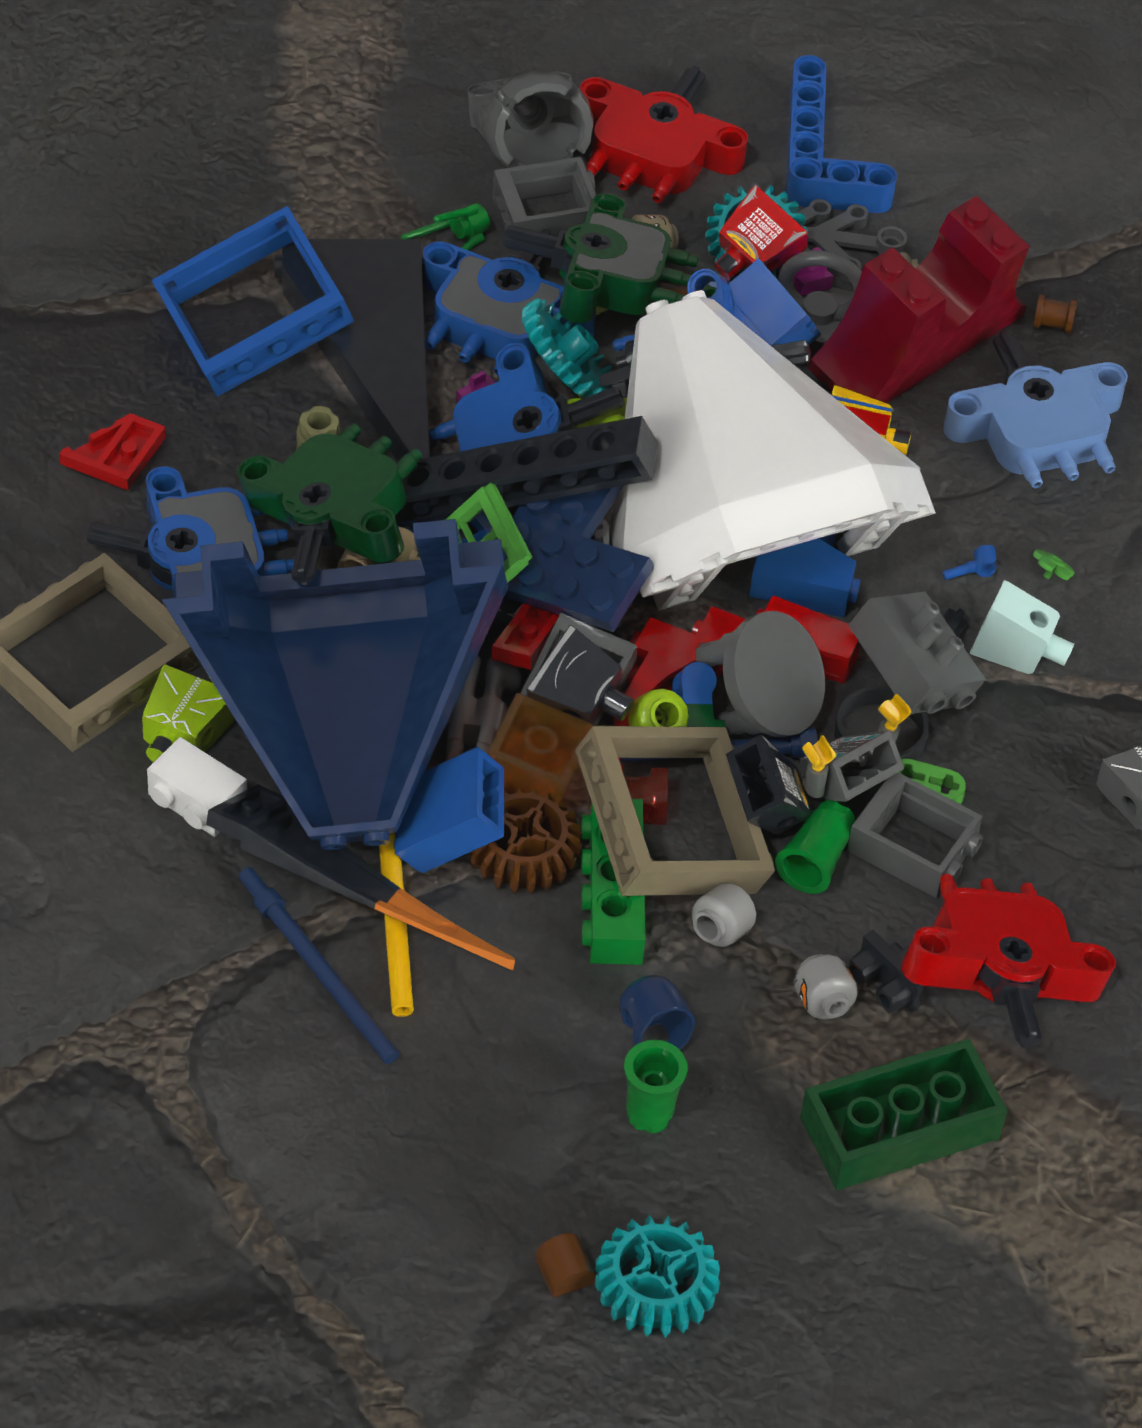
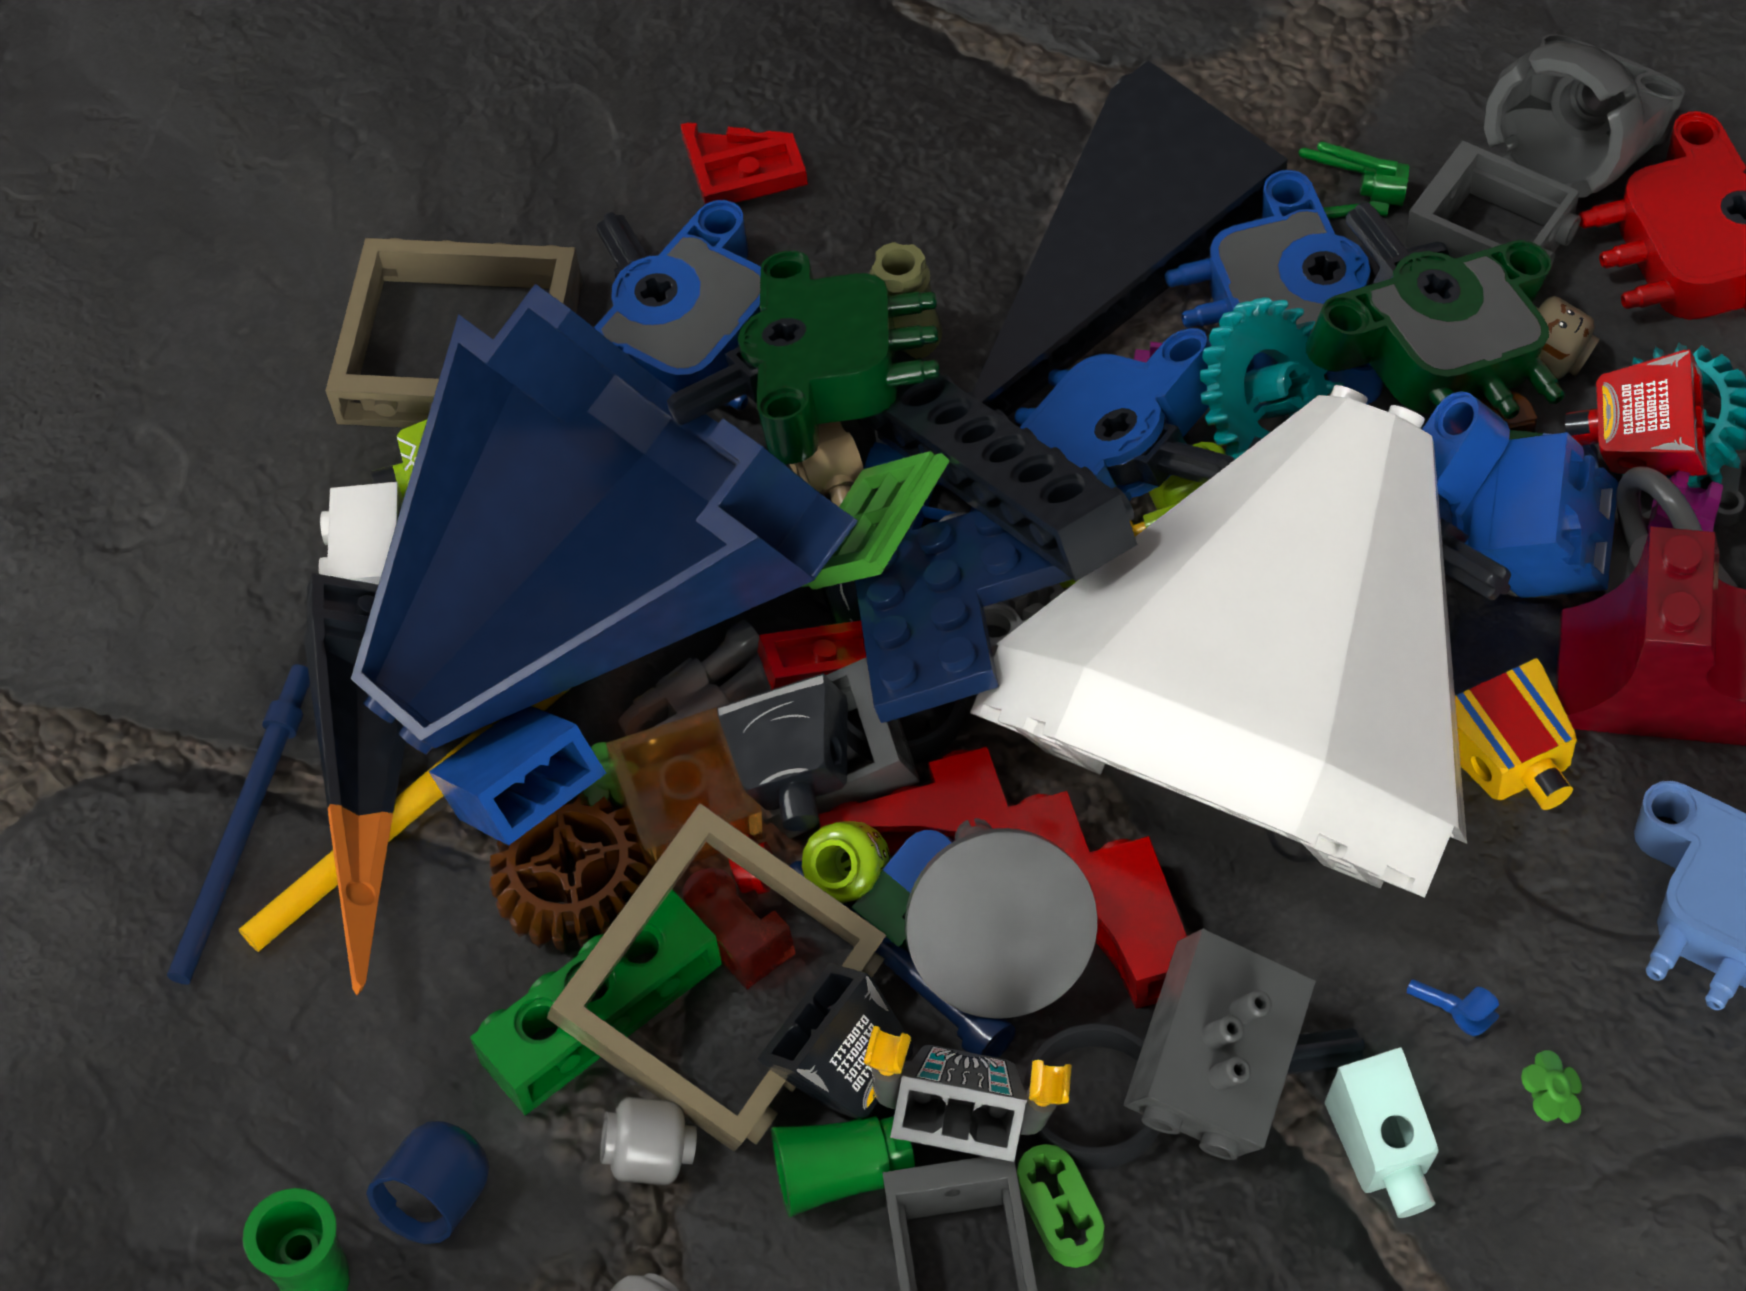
camera: 60 degrees right, 5 degrees up
(273, 342) = (1067, 164): blue window -> none
(807, 575) = (1236, 860): blue slope -> none

